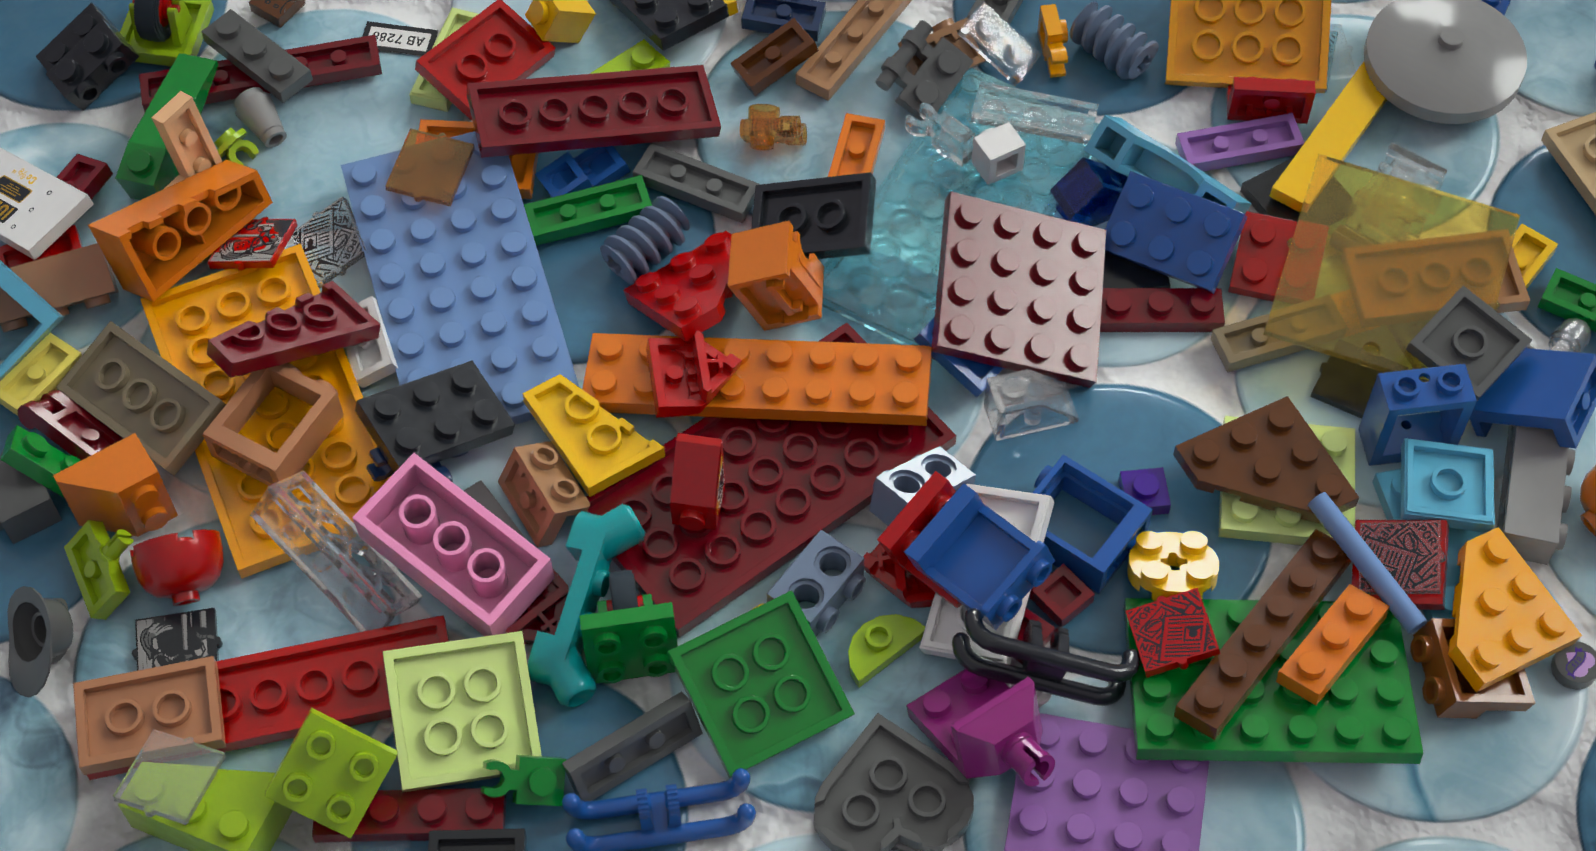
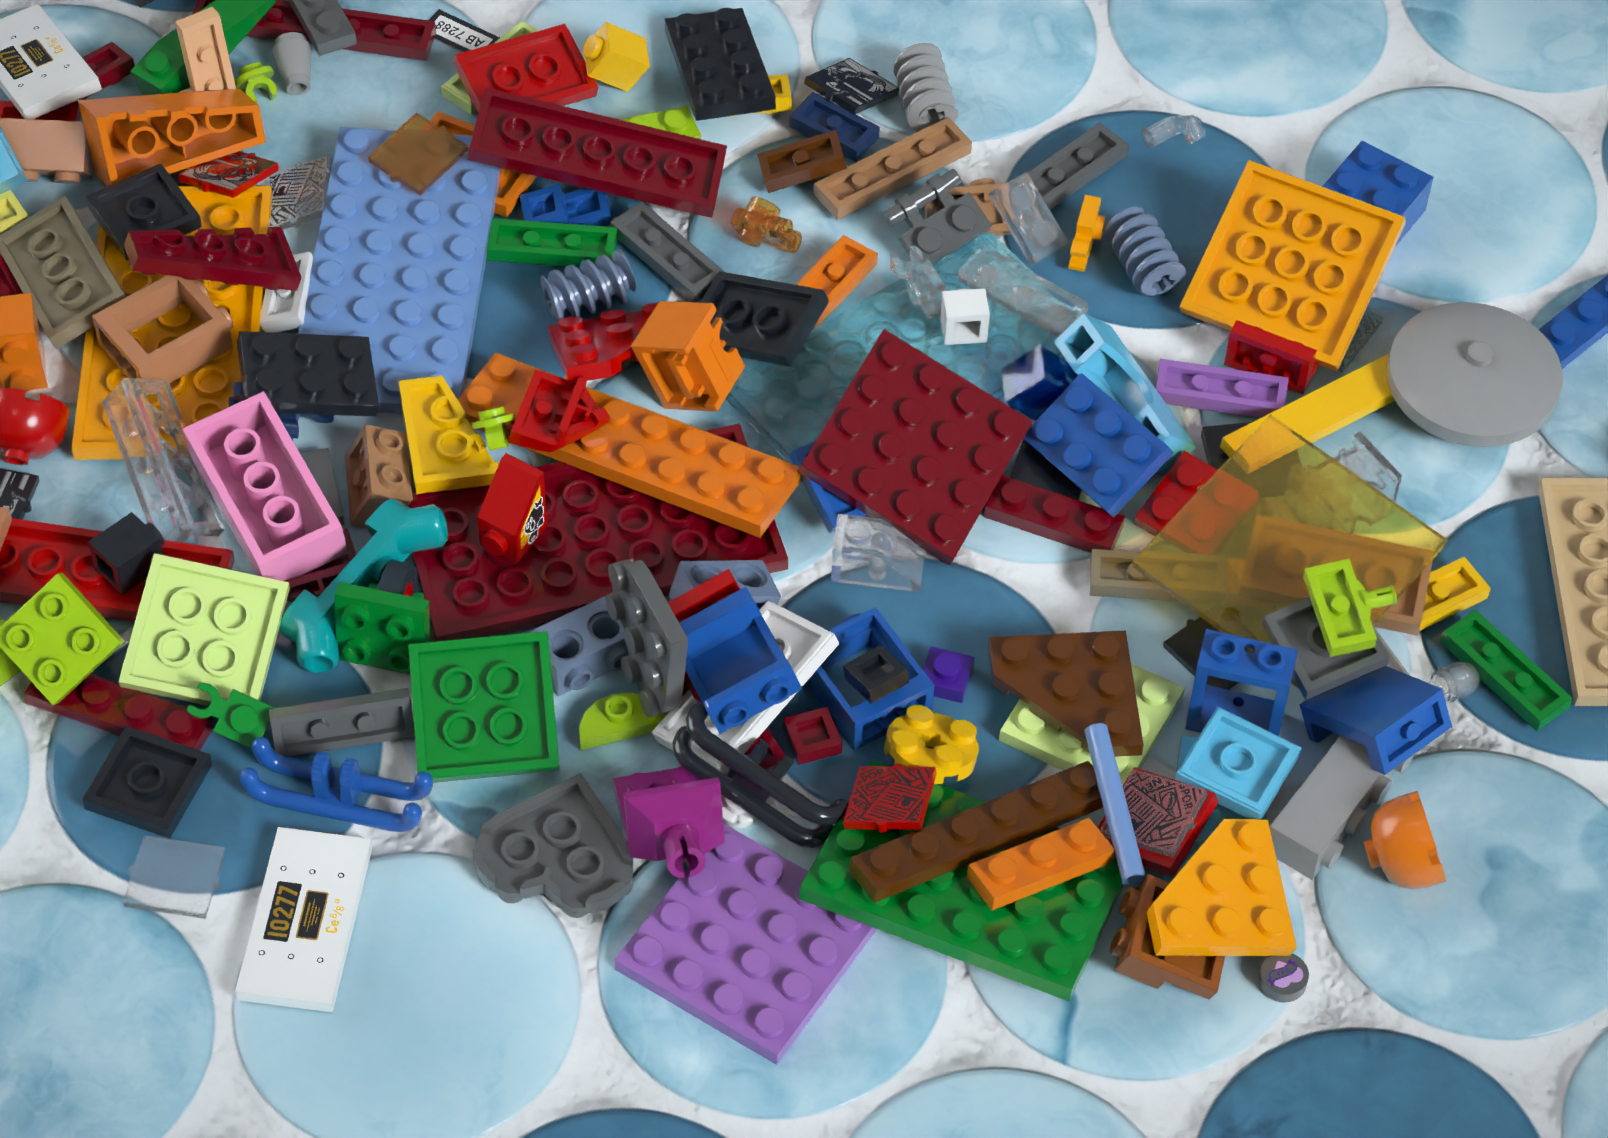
camera: 20 degrees right, 5 degrees down
(194, 309) = (140, 204): none -> black plate
(350, 657) = (126, 552): none -> black brick
(633, 402) = (495, 427): none -> lime plate
(898, 564) = (652, 635): none -> dark grey plate
(1102, 519) = (876, 674): none -> black plate
(1479, 309) = (1344, 606): none -> lime plate

